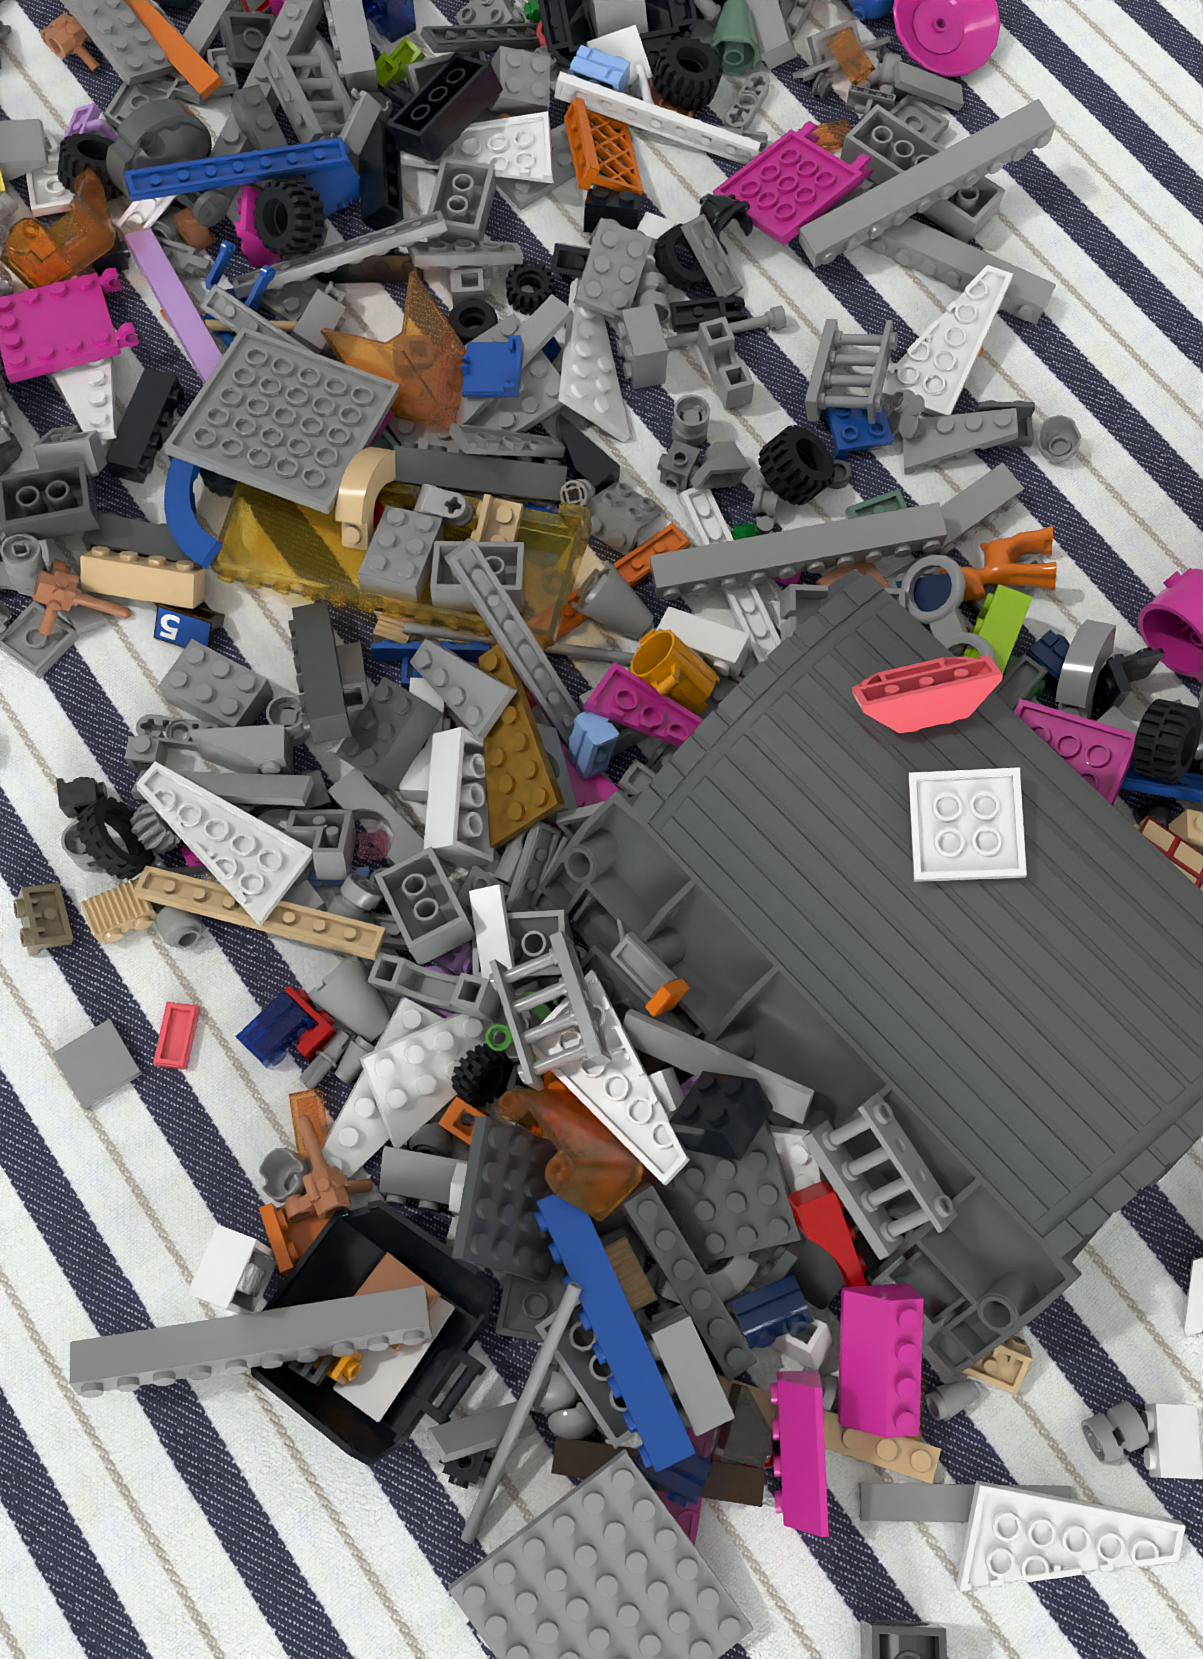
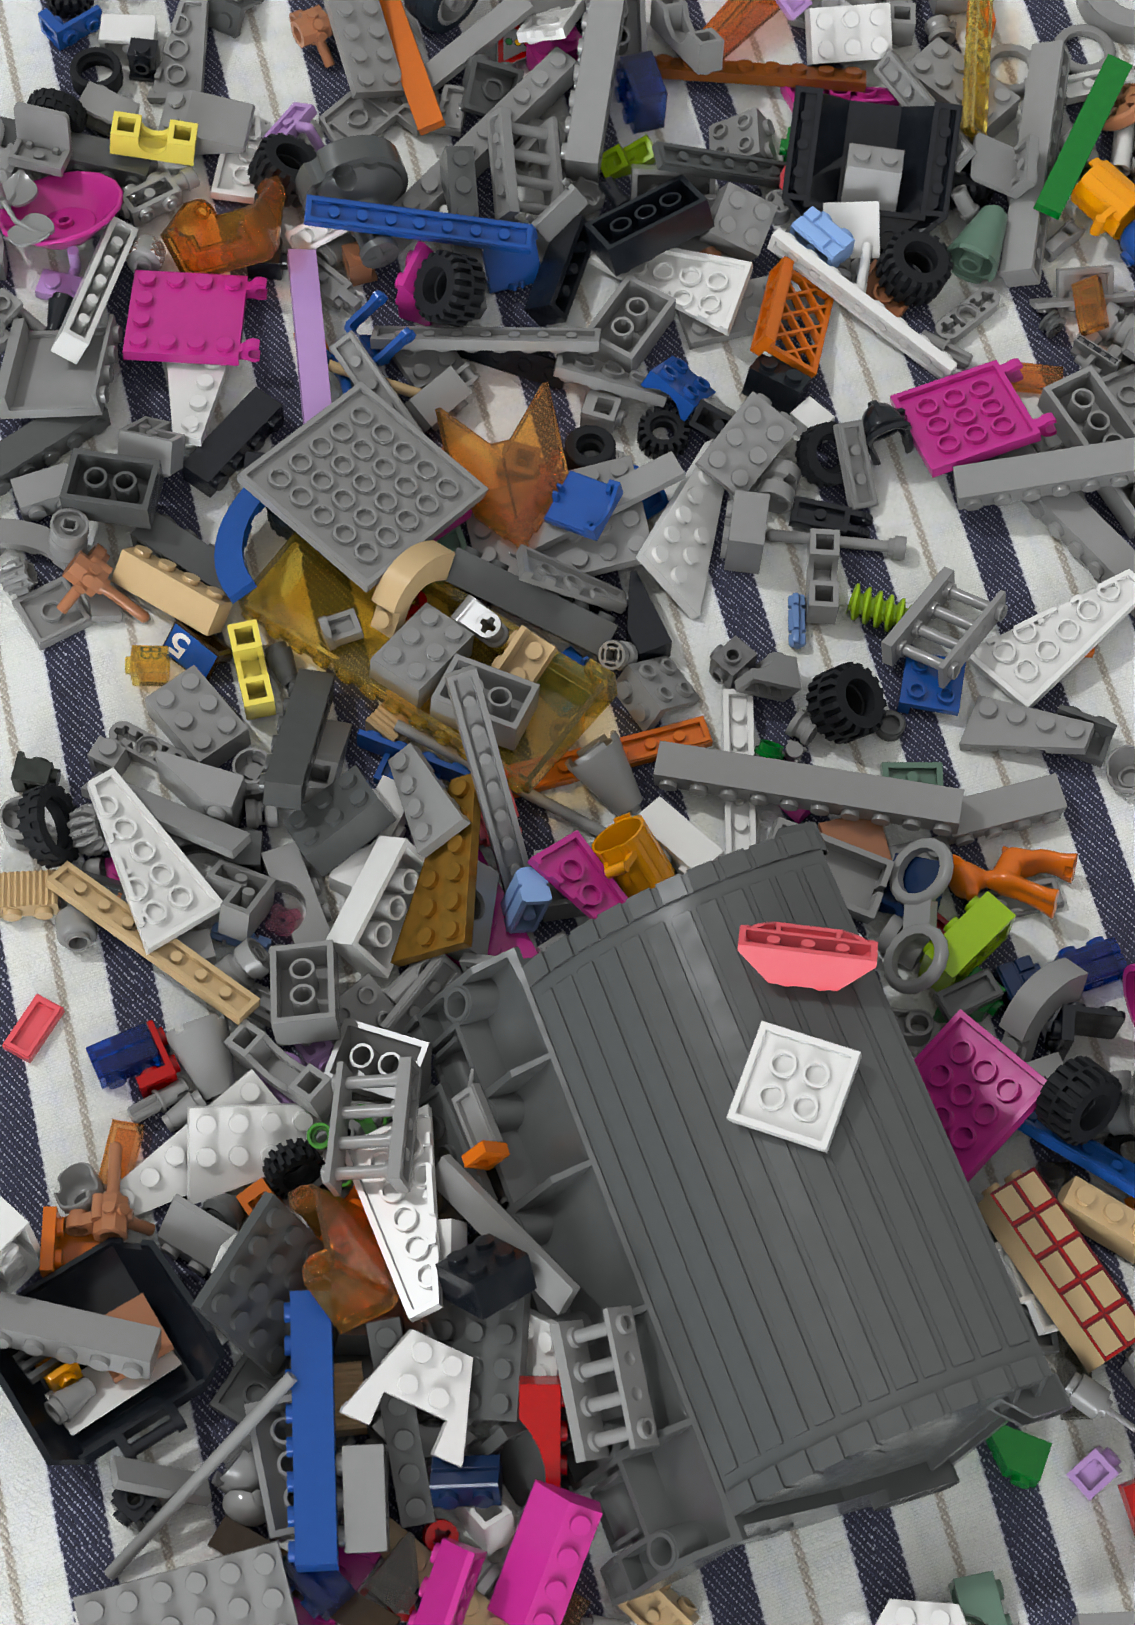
camera: 20 degrees right, 5 degrees down
(148, 655) = (148, 665): none -> clear yellow brick
(173, 860) = (95, 865): none -> light grey hinge
(247, 625) = (251, 669): none -> light yellow arch
(272, 608) = (281, 661): none -> dark grey cone
(305, 756) = (254, 814): none -> light grey wheel
(315, 558) = (340, 628): none -> light grey tile
(361, 1388) = (68, 1401): none -> light grey cone
(491, 928) = (357, 1034): white tile -> none
(522, 235) = (680, 384): none -> blue piece
(690, 420) = (763, 622): light grey wheel -> none
(700, 1232) = (428, 1378): none -> white wing
(718, 411) = (796, 621): none -> medium blue axle
(756, 1372) = (437, 1530): none -> red wheel
(783, 374) = (876, 608): none -> lime piece
(905, 412) = (984, 684): light grey plate -> none
(1106, 608) = (1098, 958): none -> clear blue brick

